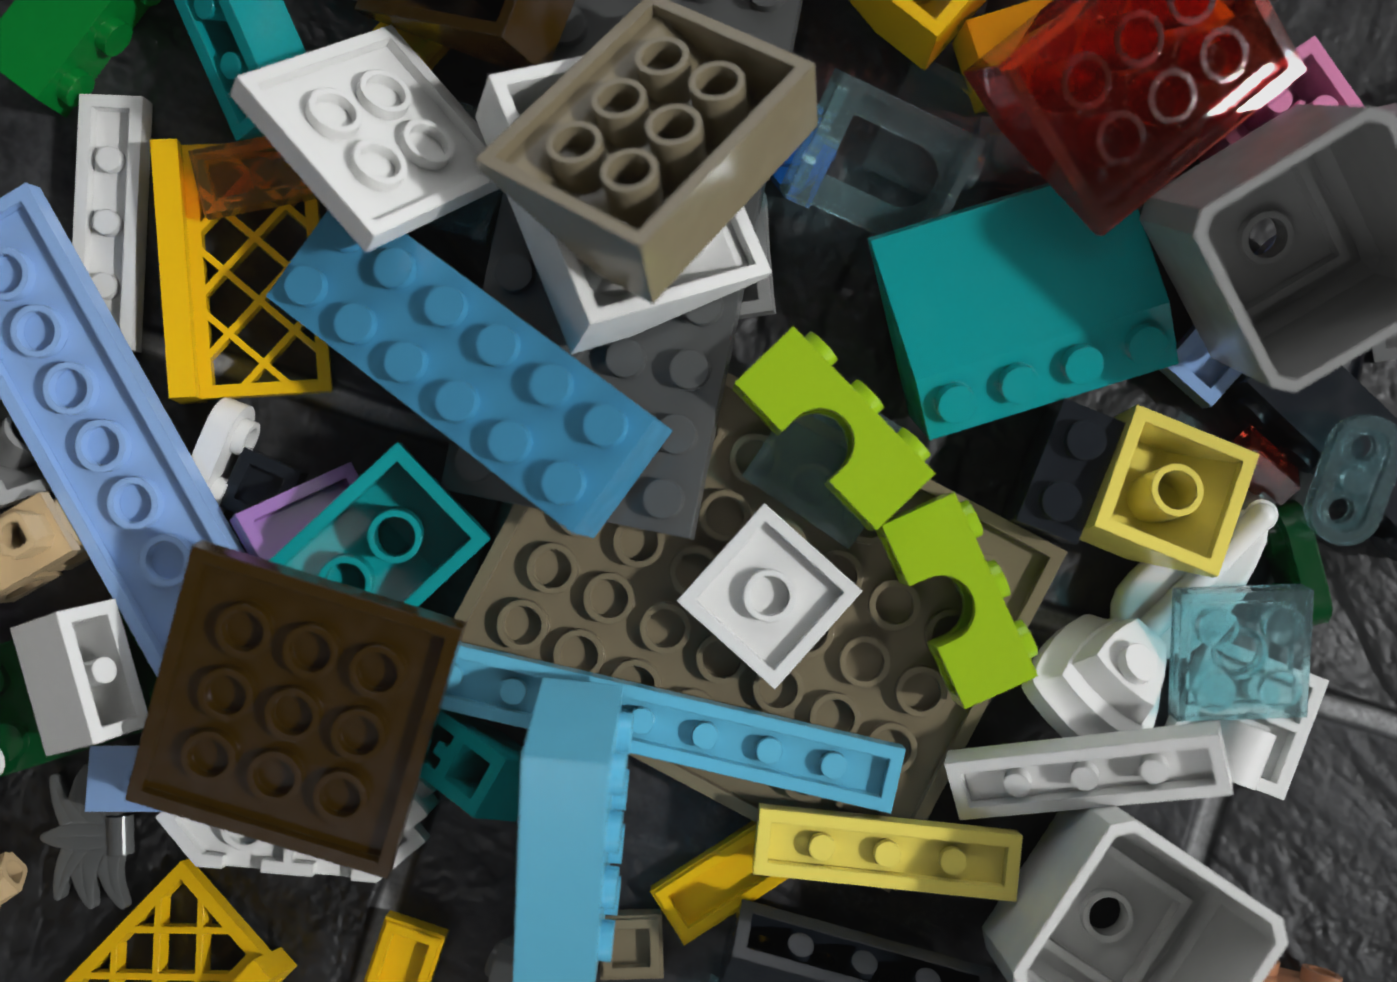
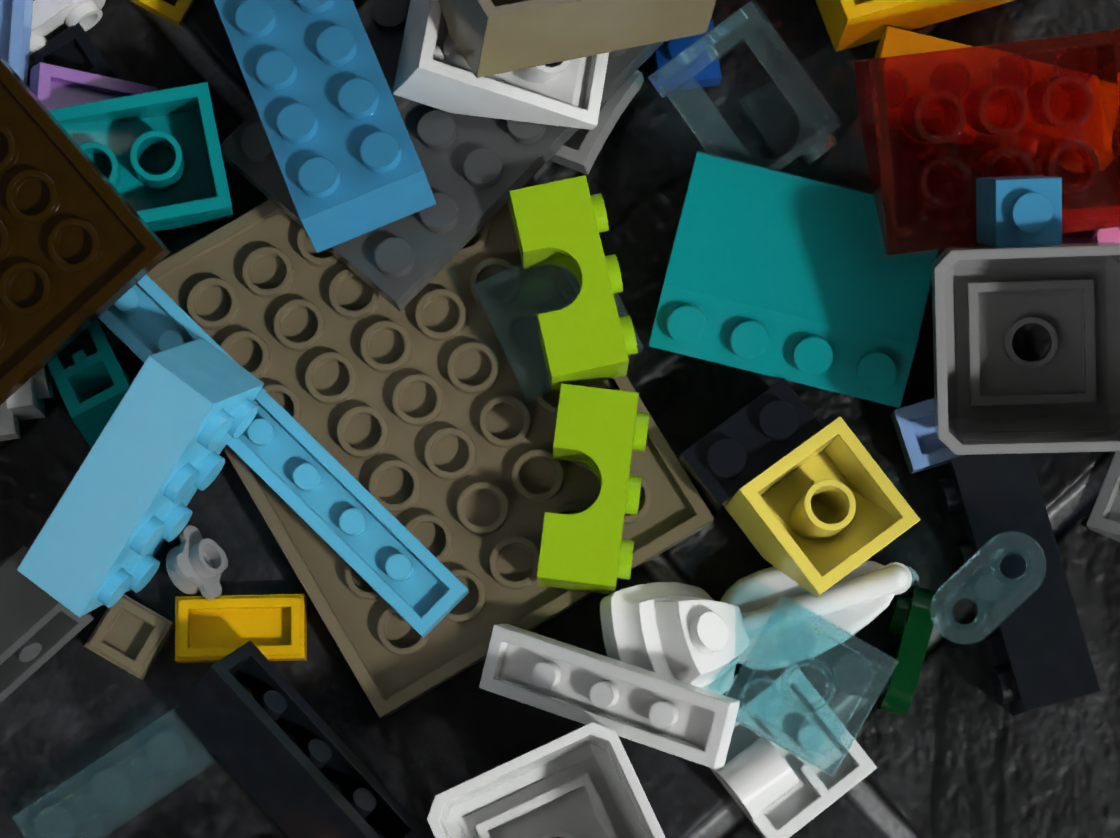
camera: 30 degrees right, 10 degrees down
(652, 855) = (196, 564): none -> light grey plate
(769, 595) = (434, 395): white plate -> none
(887, 852) = (398, 671): light yellow plate -> none
(1211, 127) = (1019, 211): none -> dark azure brick
(1273, 471) = (930, 549): clear red plate -> none

